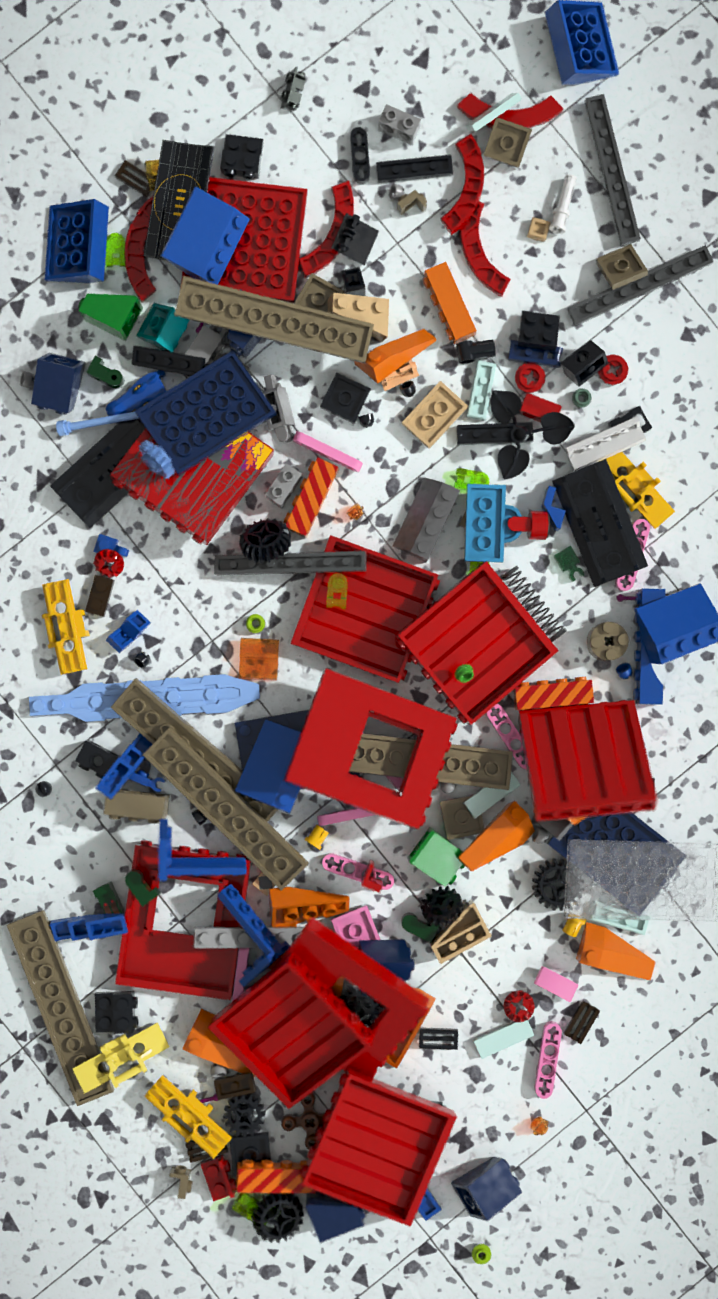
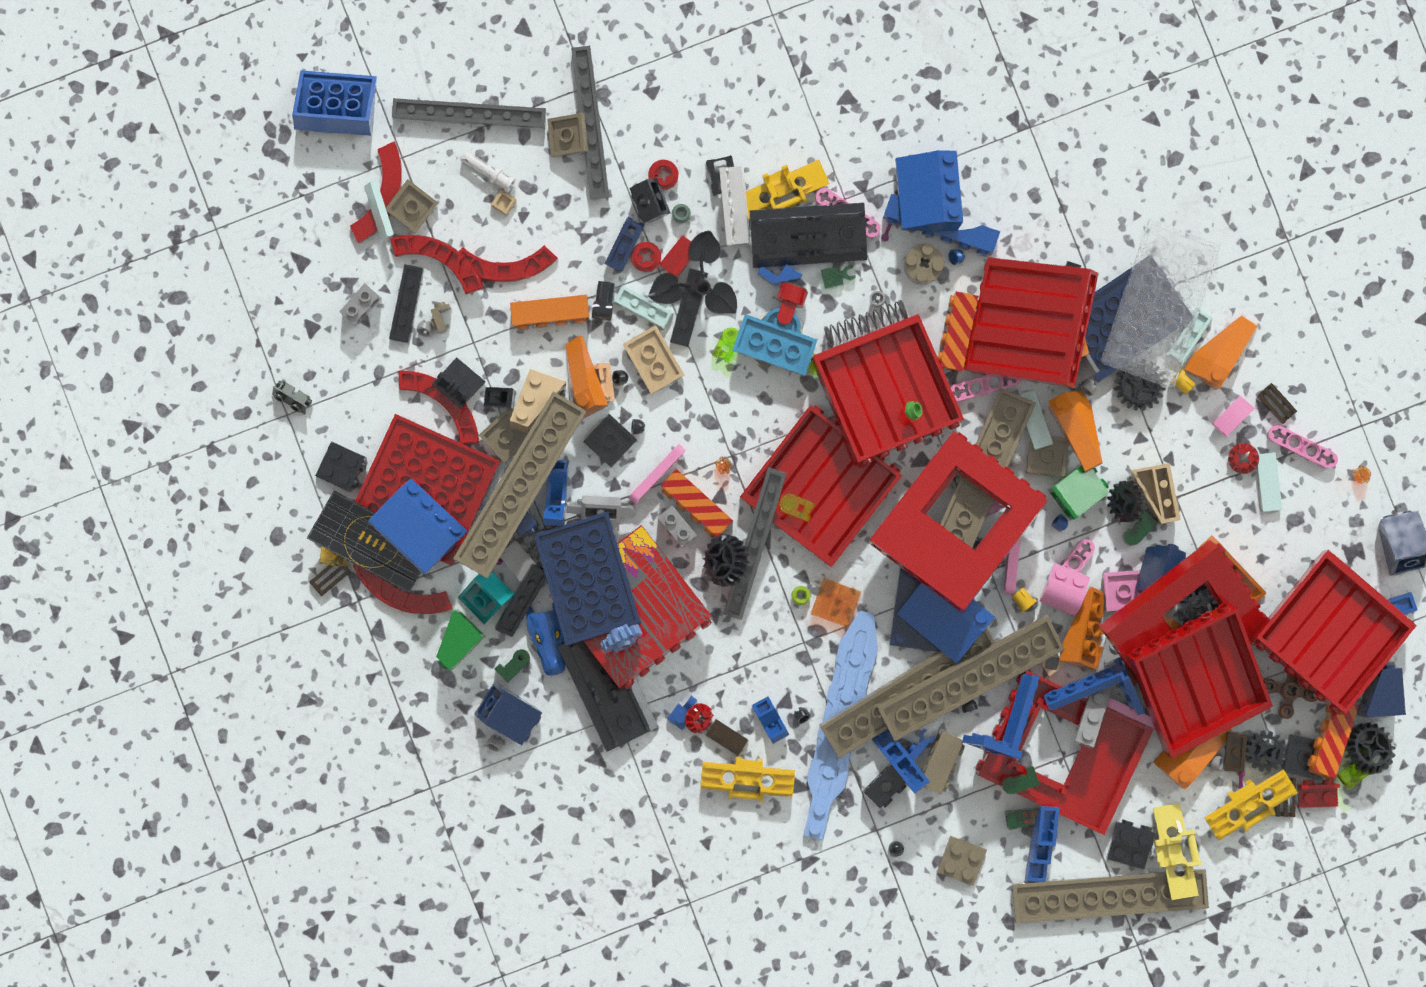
camera: 70 degrees left, 0 degrees up
(51, 854) = (961, 860): none -> dark tan plate
(65, 427) = (554, 720): light blue piece -> none
(77, 242) = (376, 653): blue slope -> none
(115, 245) = (389, 615): clear neon green plate -> none
(184, 1175) = (1313, 827): dark tan bracket -> none
(279, 363) = (556, 494): none -> blue arch
(338, 873) = (1064, 589): none -> bright pink brick
(354, 149) = (364, 344): black beam -> none
(369, 881) = (1083, 561): red panel -> none
(401, 849) = (1060, 522): none -> blue hinge
(426, 518) = (751, 399): flat silver slope -> none
(438, 1038) = (1243, 541): black tile -> none
(538, 330) = (604, 234): black plate -> none
(559, 604) = (873, 296): none -> light grey hinge

